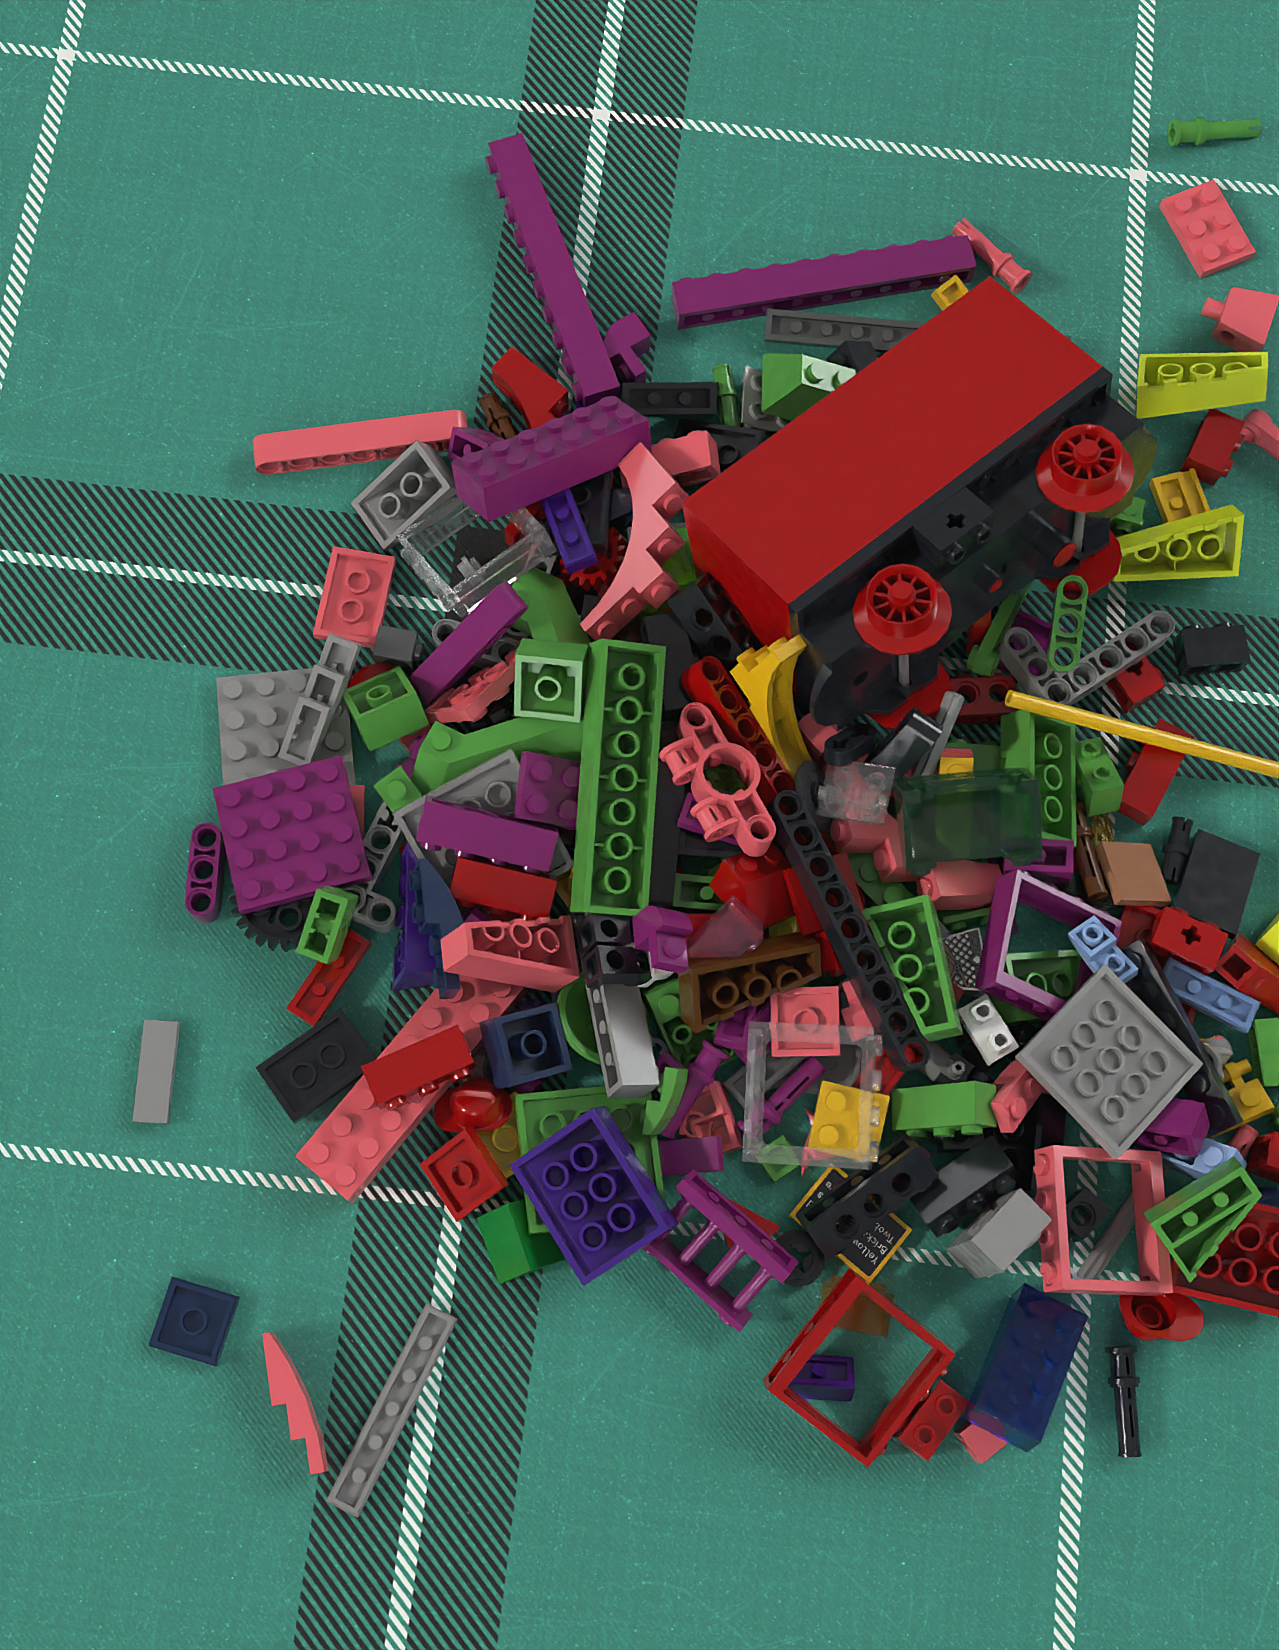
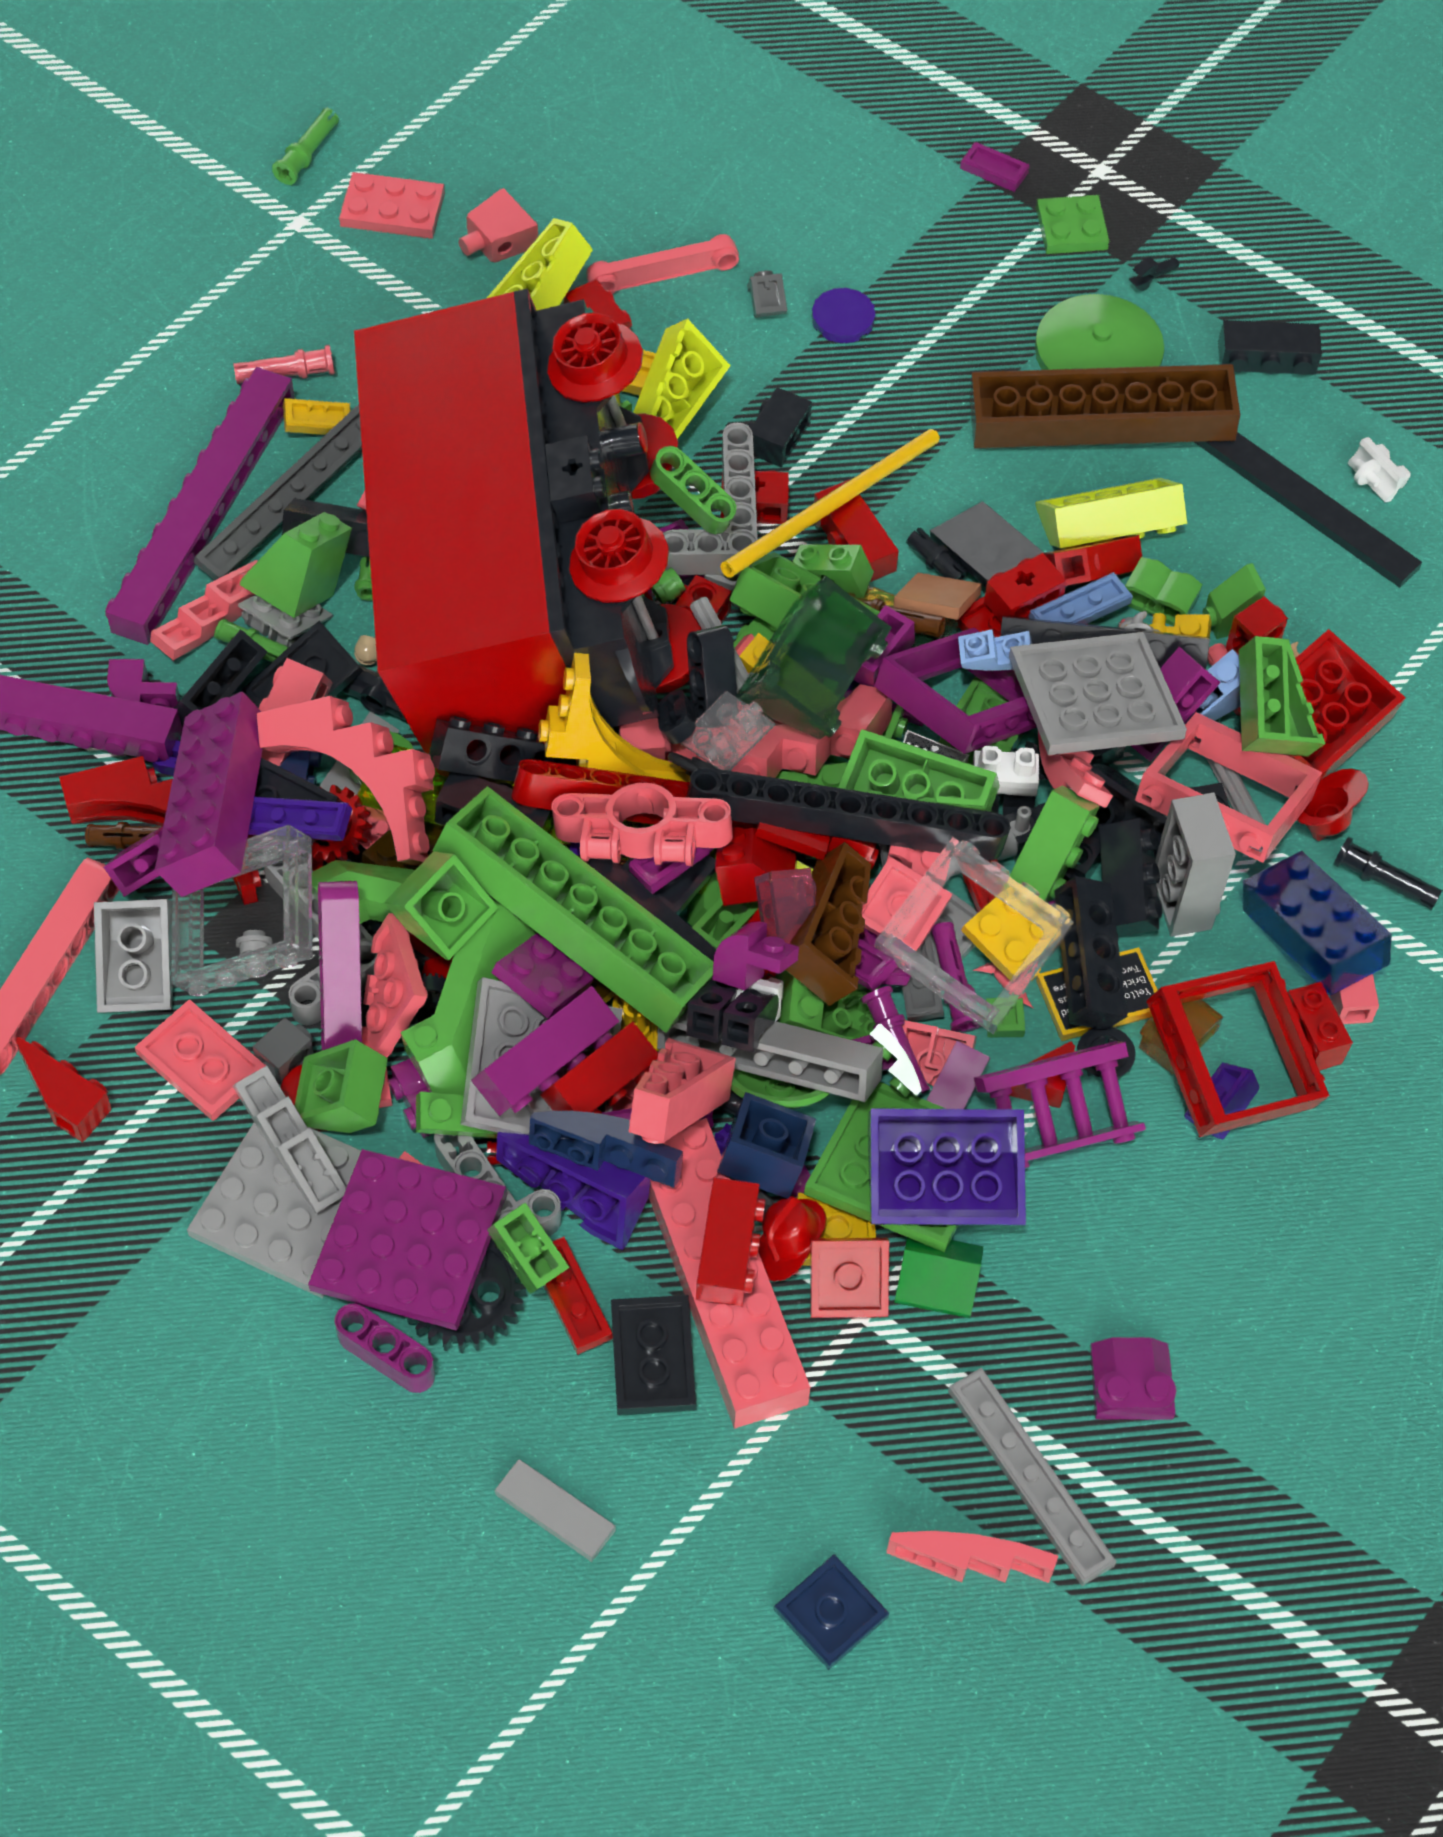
camera: 55 degrees left, 15 degrees down
(266, 523) = (68, 1097): none -> red slope
(520, 1443) = (1132, 1379): none -> magenta slope
(724, 348) = (201, 616): none -> coral slope

